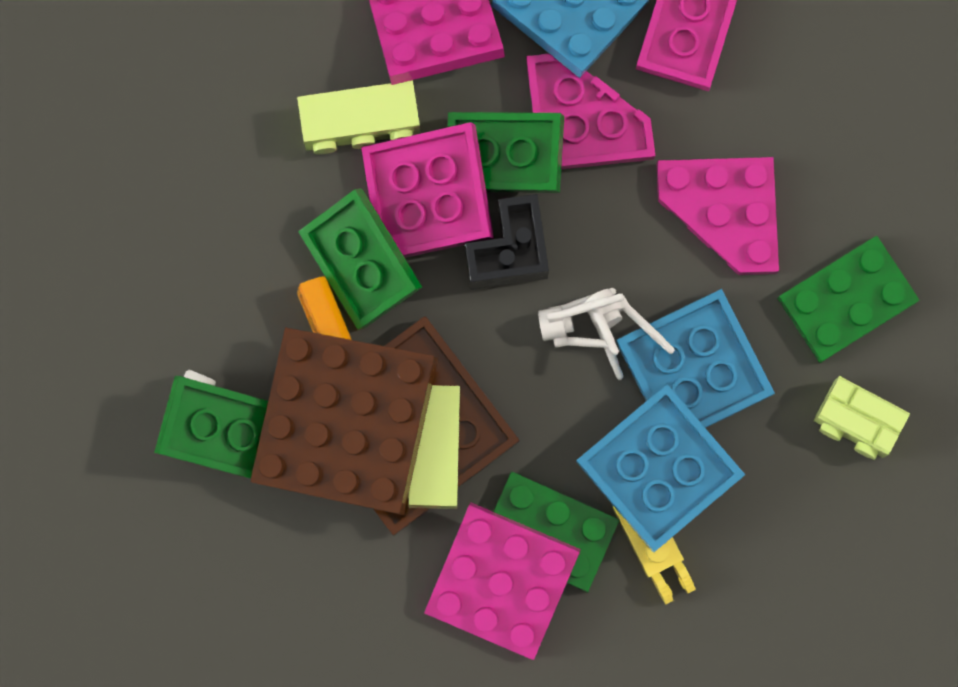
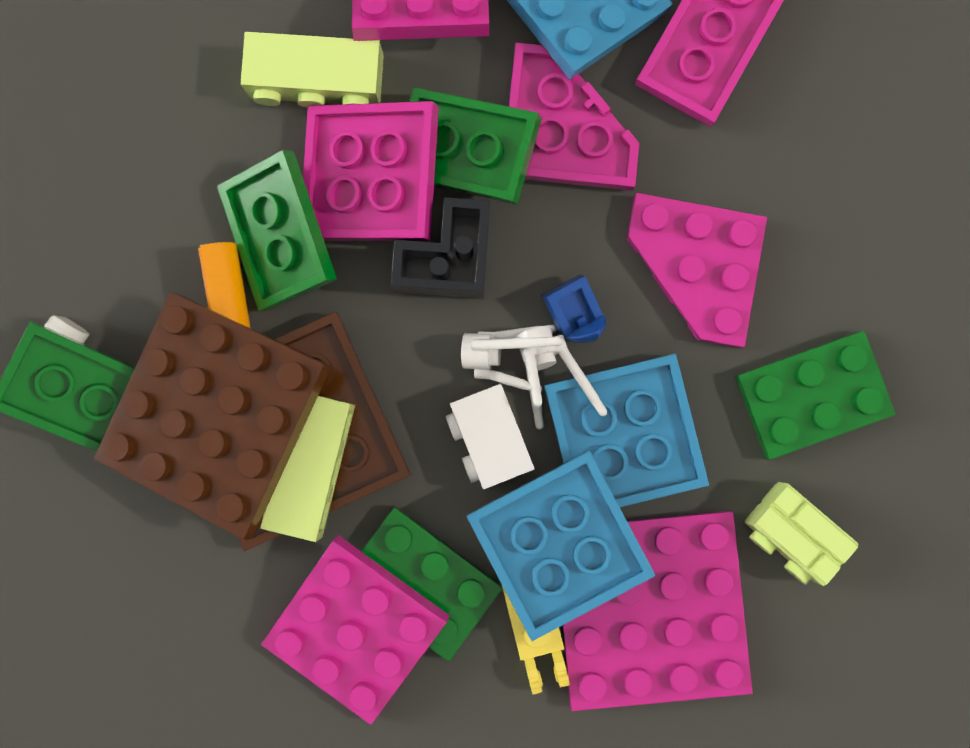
camera: 15 degrees right, 5 degrees up
(580, 393) = (490, 437): none -> white brick
(628, 271) = (575, 311): none -> blue plate
(769, 523) = (671, 634): none -> dark pink plate

